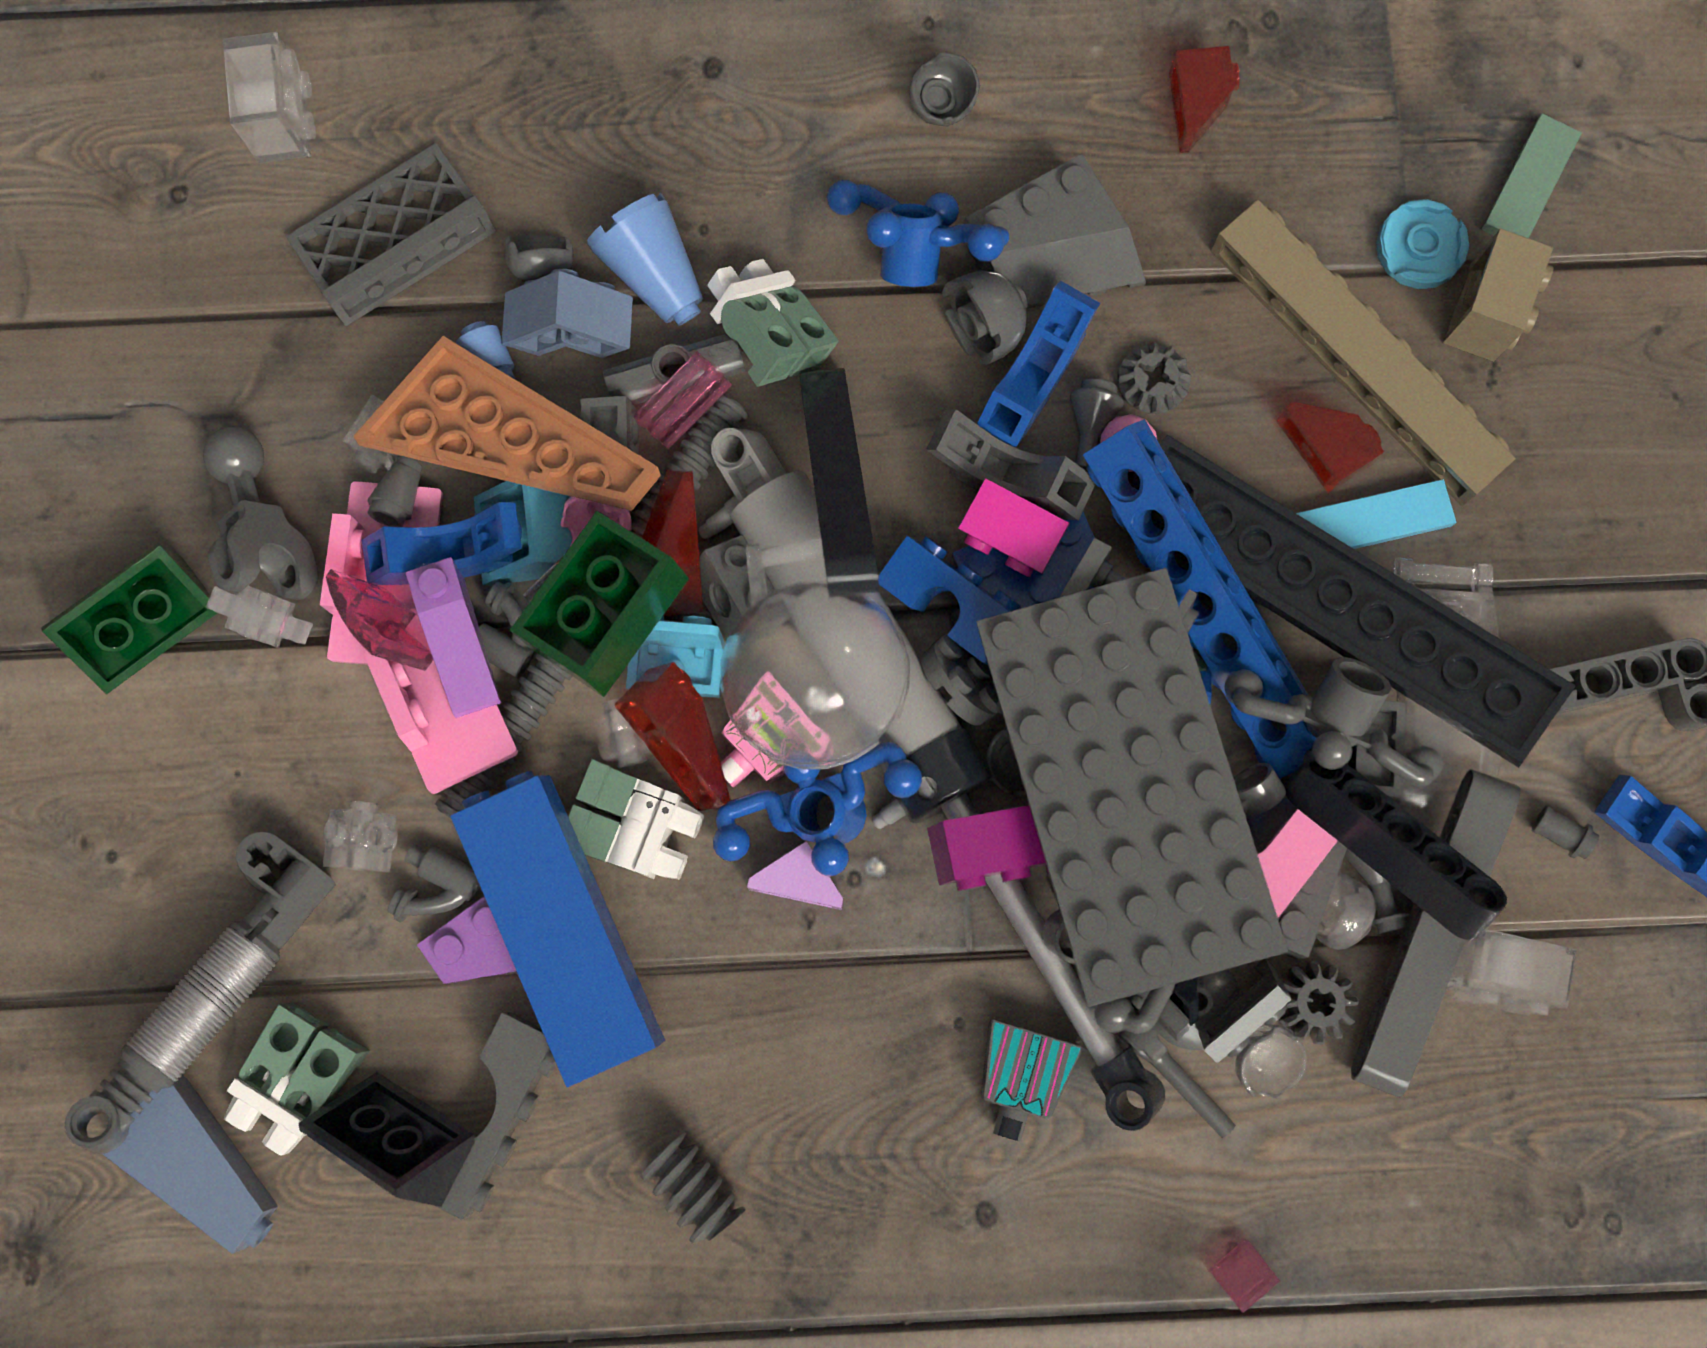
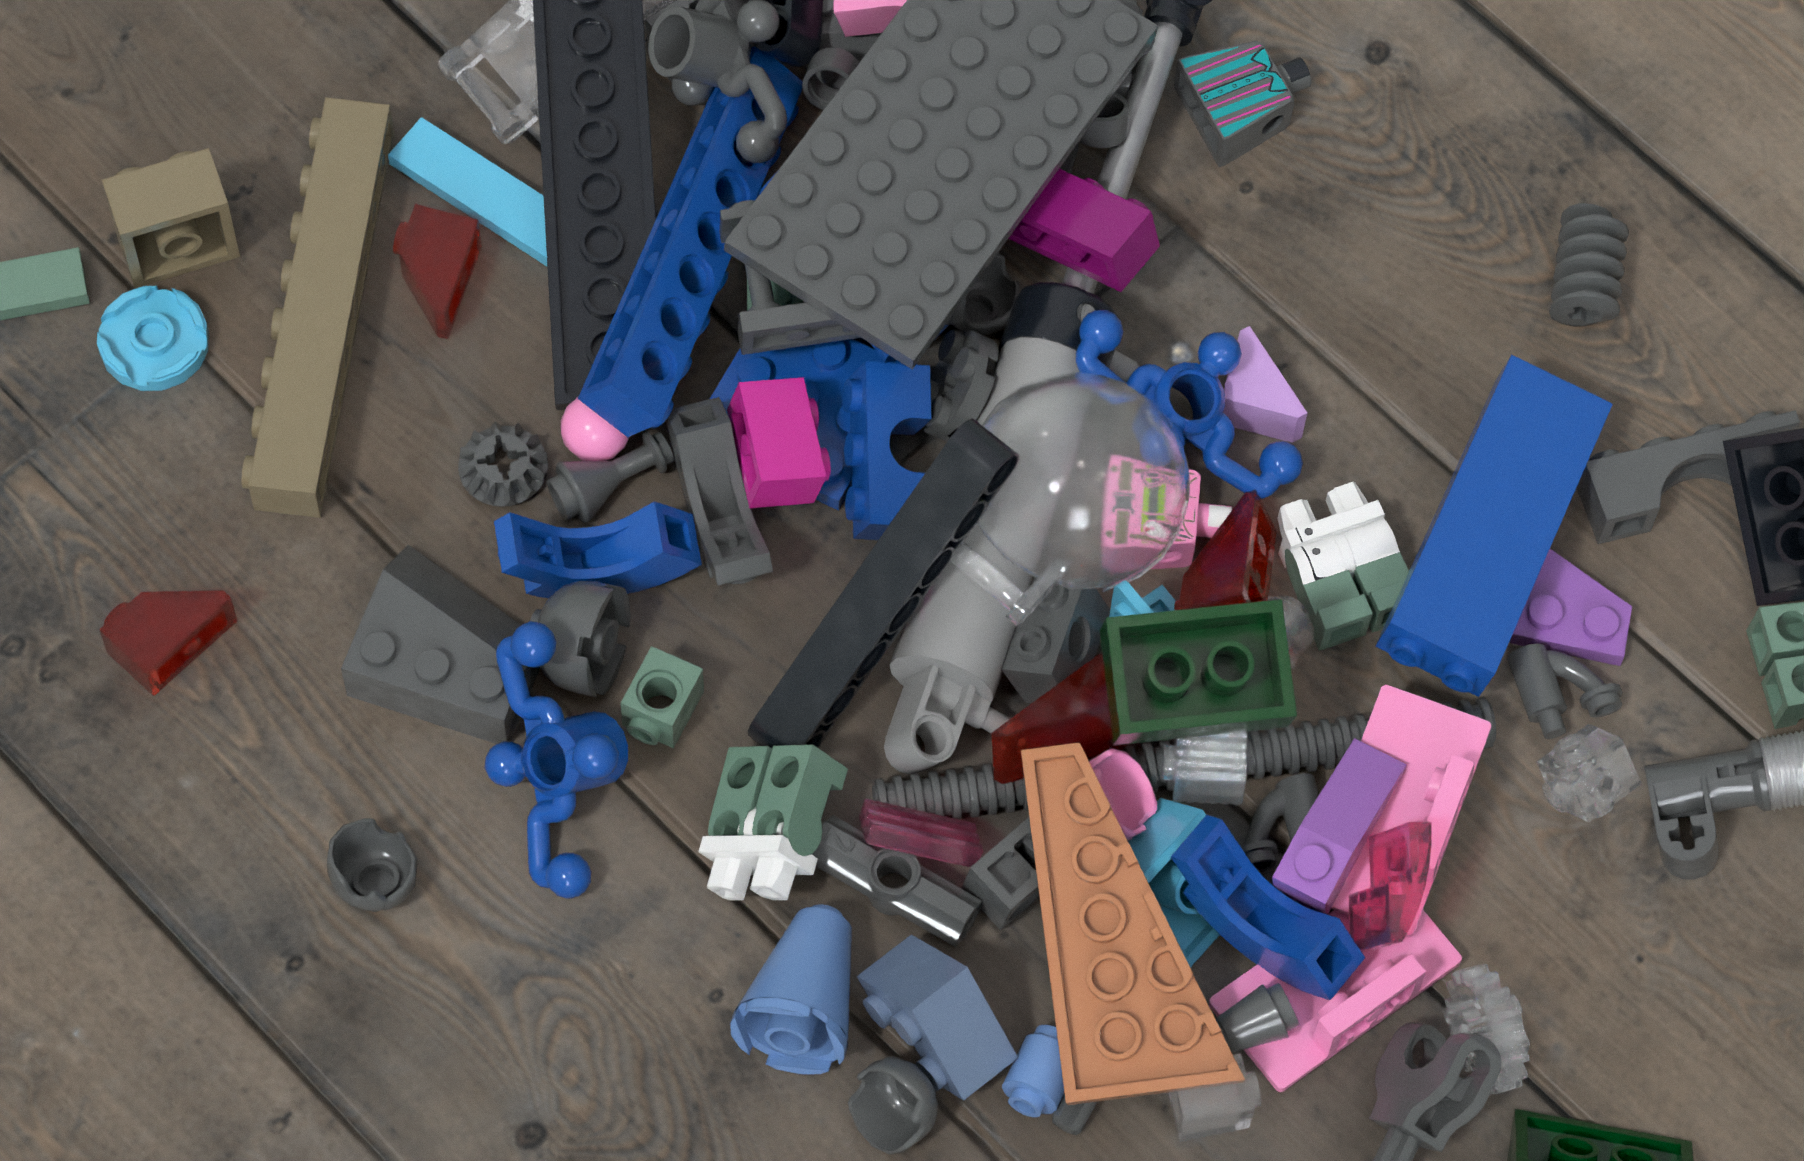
camera: 135 degrees left, 15 degrees down
(913, 354) = (667, 677): none -> sand green brick

